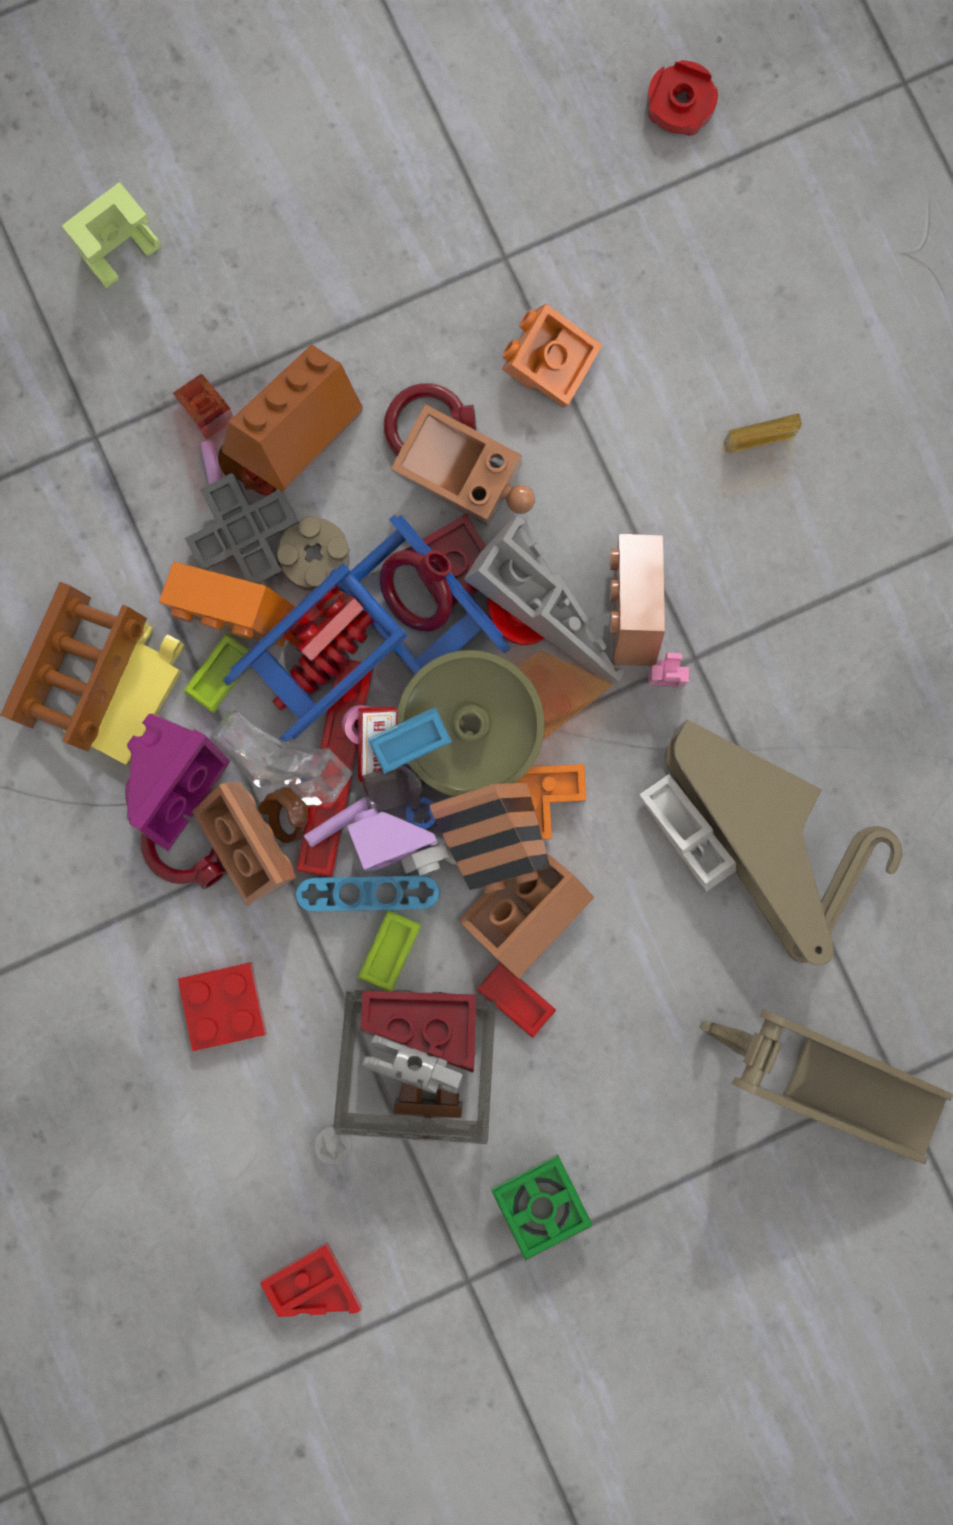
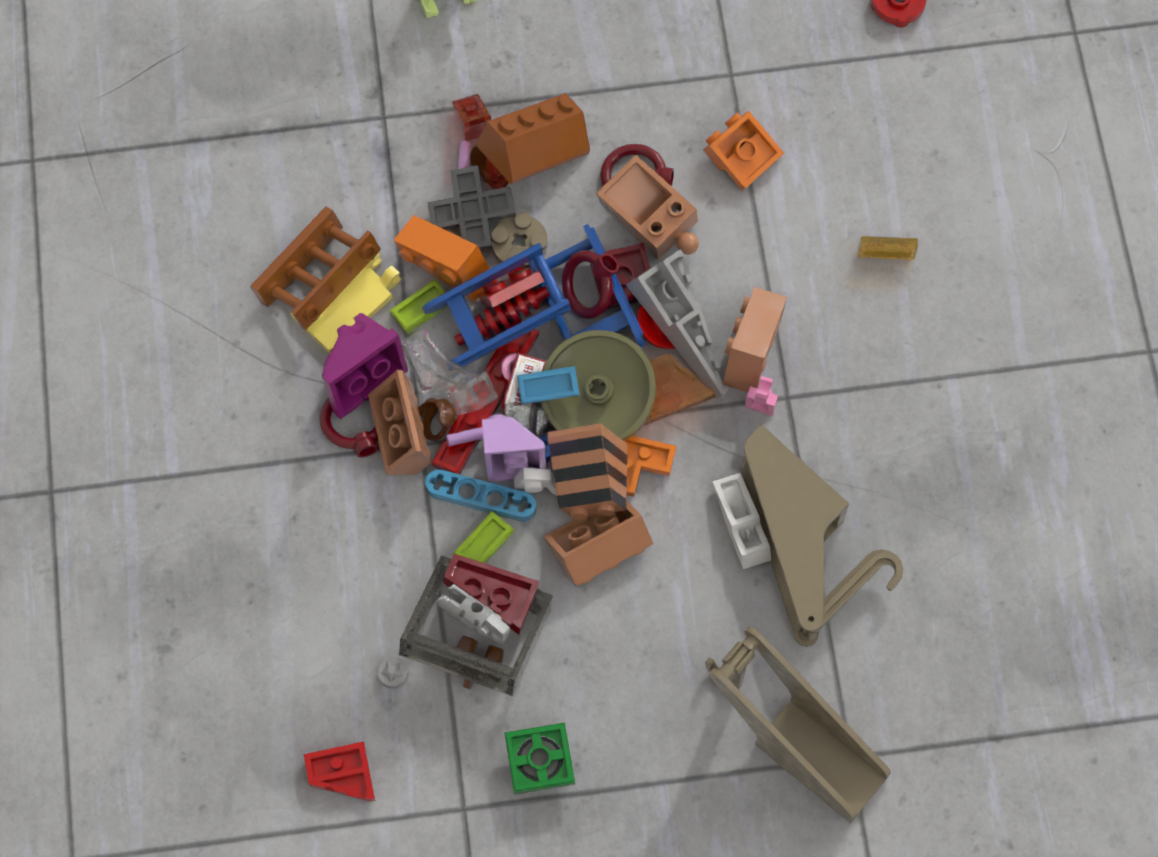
camera: 20 degrees right, 15 degrees down
(222, 1006) = (342, 546): red plate -> none
(516, 999) = (570, 607): red tile -> none

